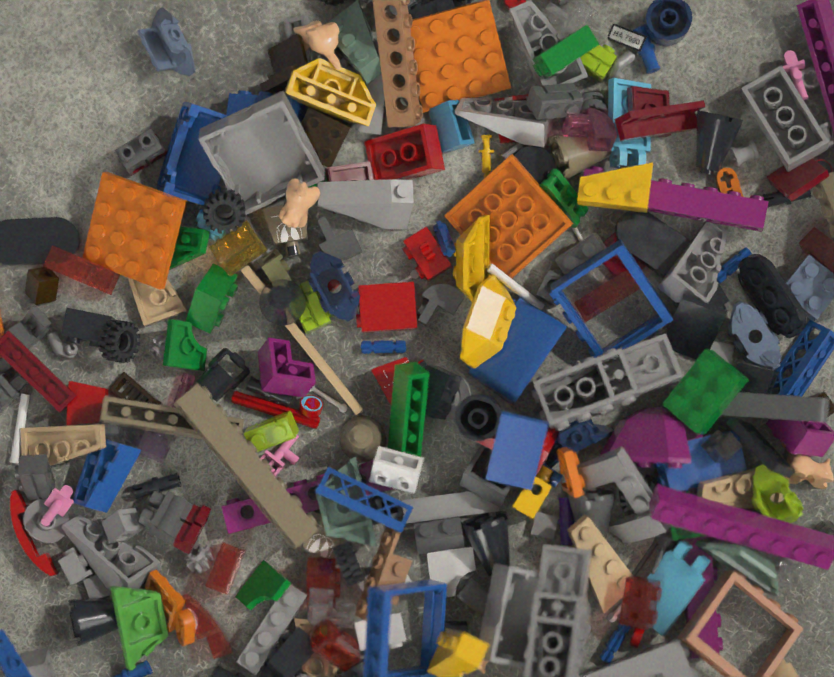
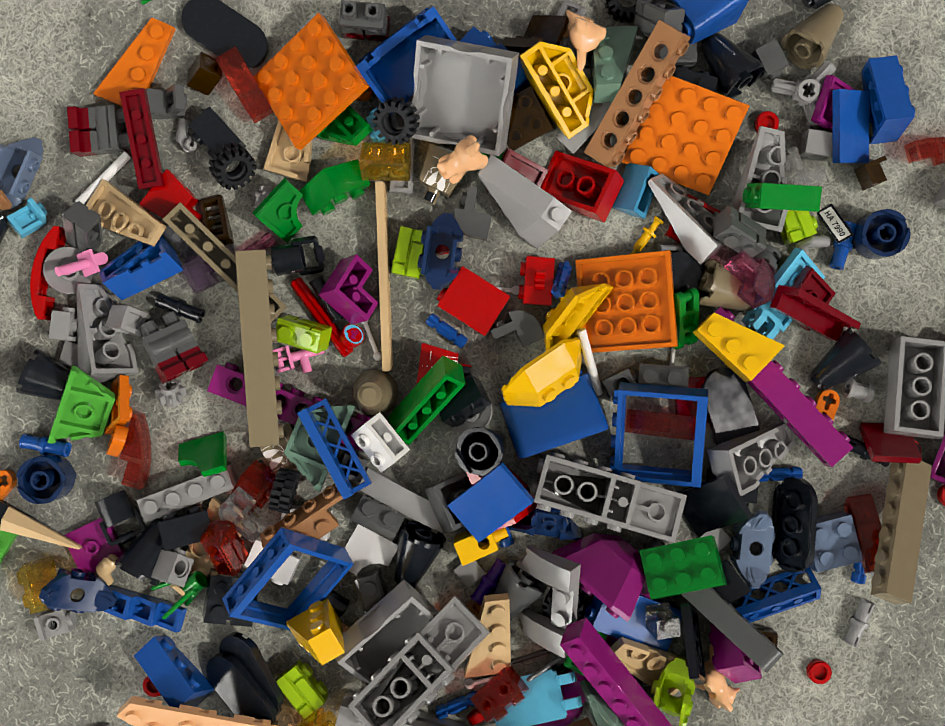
camera: 35 degrees right, 5 degrees up
(225, 568) = (185, 416): clear red brick -> none
(273, 267) = (405, 201): olive brick -> none
(282, 302) = (389, 233): black cone -> none
(568, 466) = (518, 558): orange wing -> none

